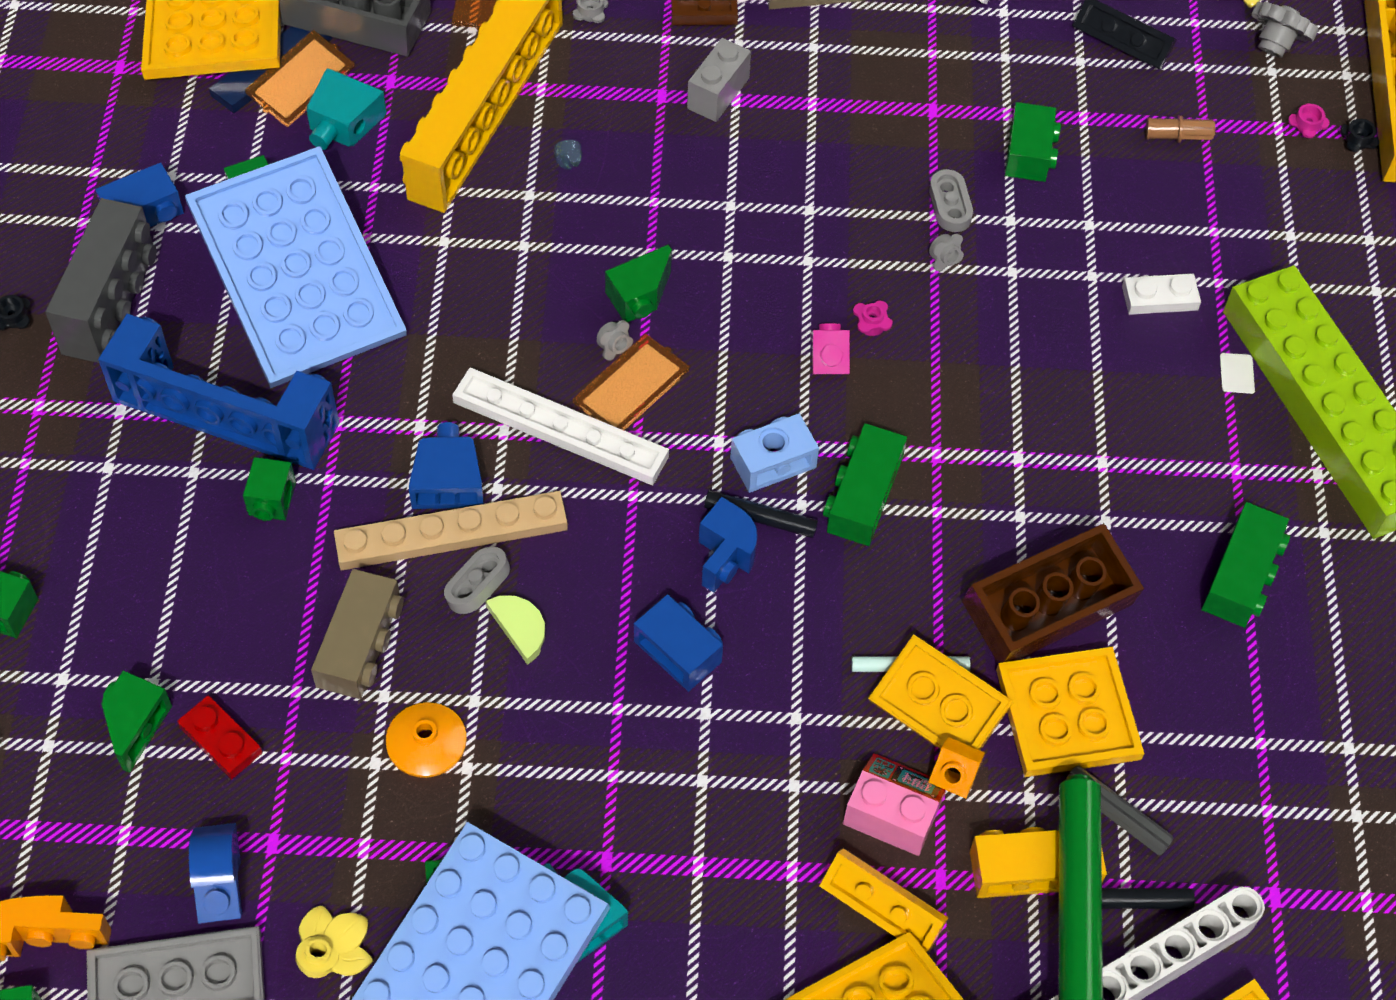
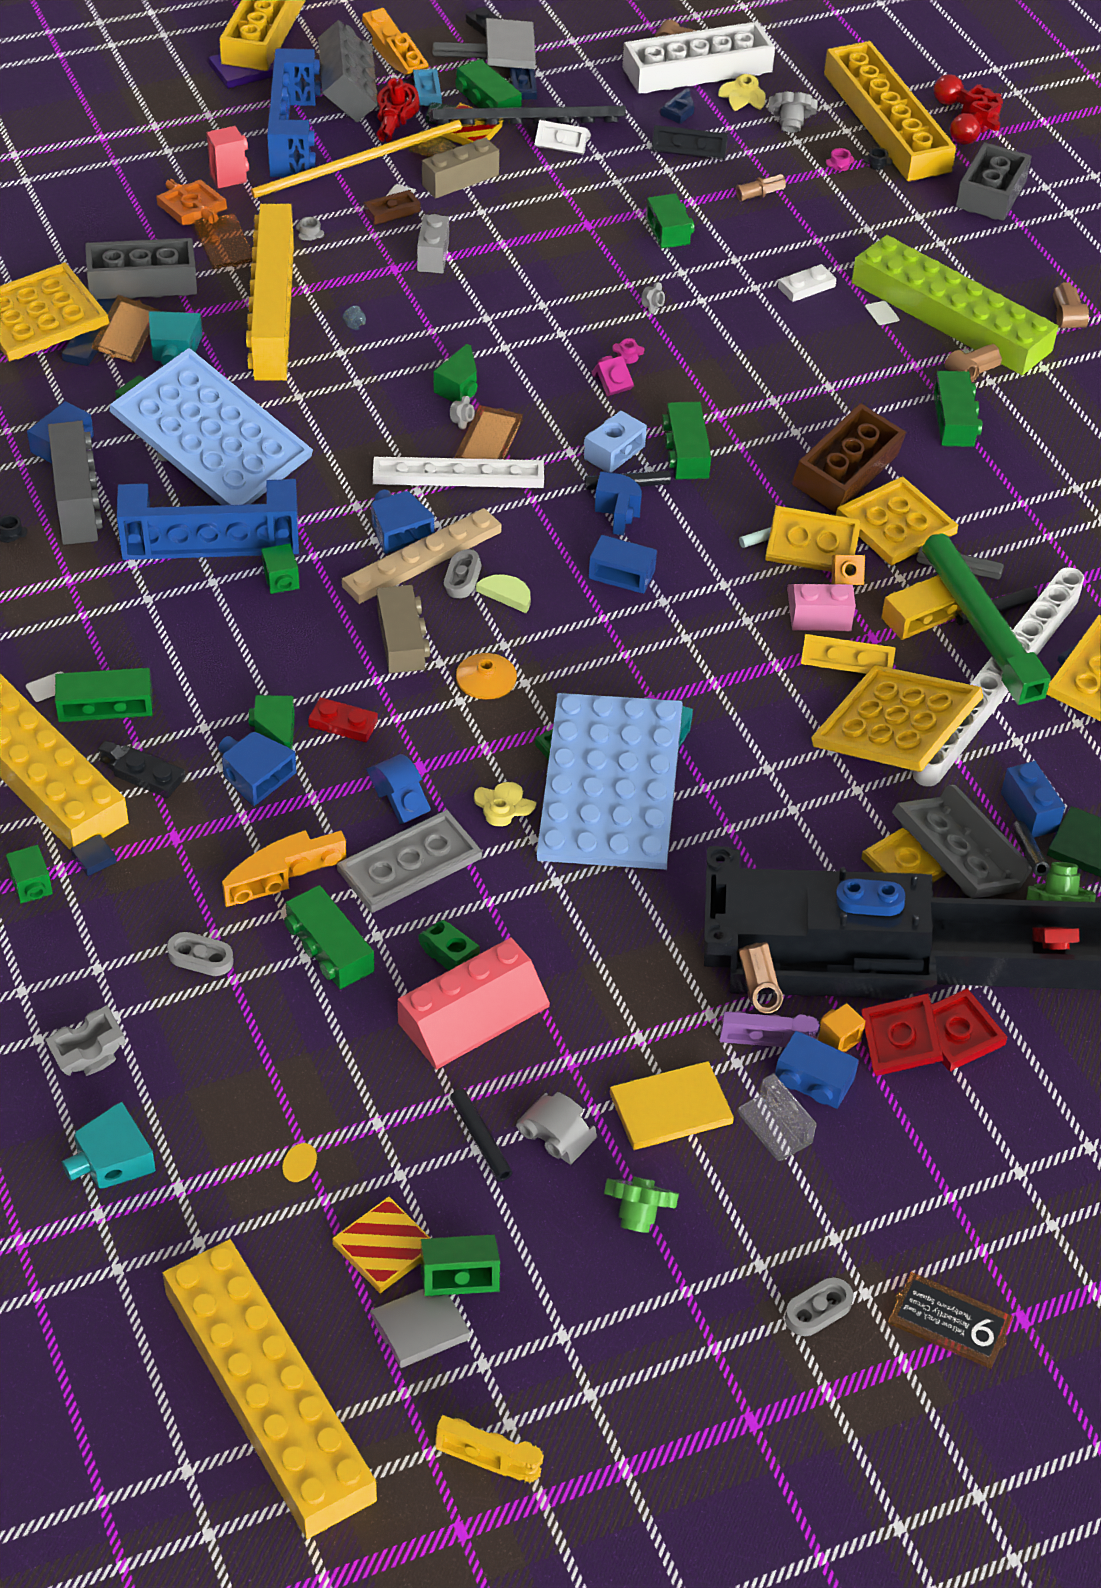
camera: 25 degrees left, 10 degrees down
(74, 767) = (256, 765): none -> blue torso
(953, 203) = (636, 269): light grey plate -> none
(1303, 501) = (974, 361): none -> medium nougat piece

